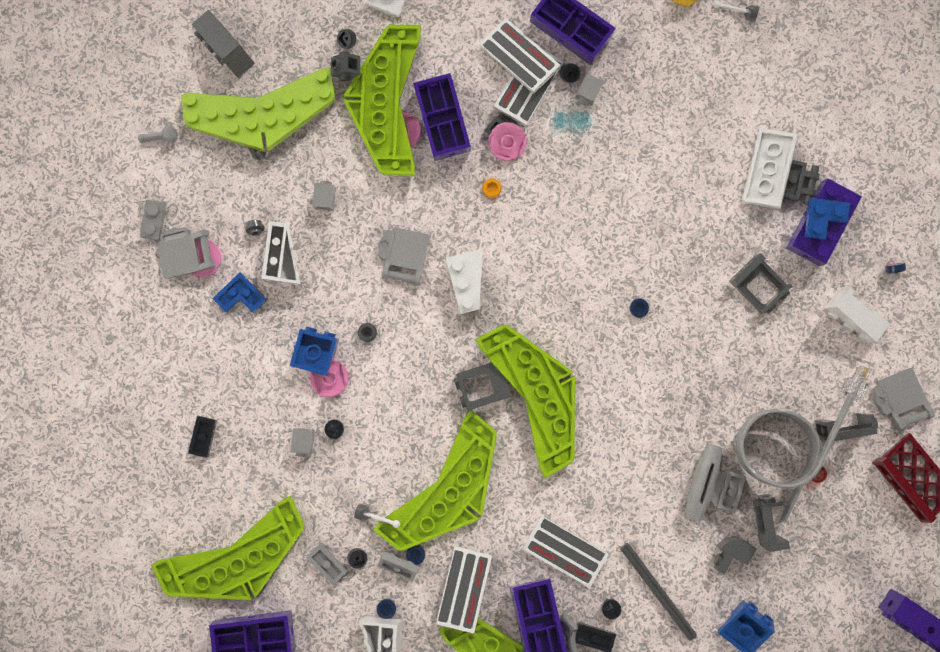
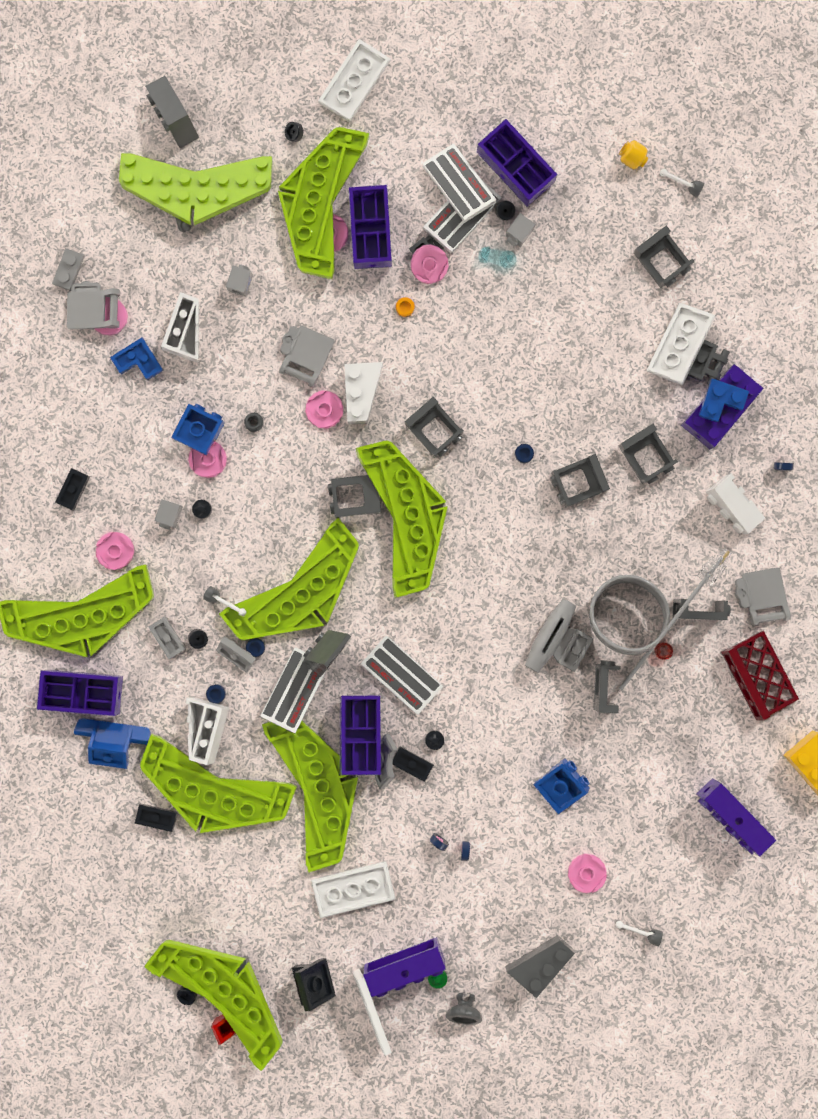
camera: 15 degrees right, 0 degrees up
(168, 134) = (100, 189): light grey piece -> none
(254, 227) = (165, 296): dark grey plate -> none
(262, 485) = (120, 551): none -> bright pink tile
(345, 66) = (286, 158): dark grey brick -> none
(439, 306) = (324, 409): none -> bright pink tile
(487, 546) = (326, 651): none -> dark grey slope
(534, 291) = (426, 414): none -> dark grey window
(658, 591) = (484, 733): dark grey axle -> none
(713, 316) = (593, 474): none -> dark grey window
(723, 77) = (653, 246): none -> dark grey window
(733, 548) = (564, 705): dark grey brick -> none

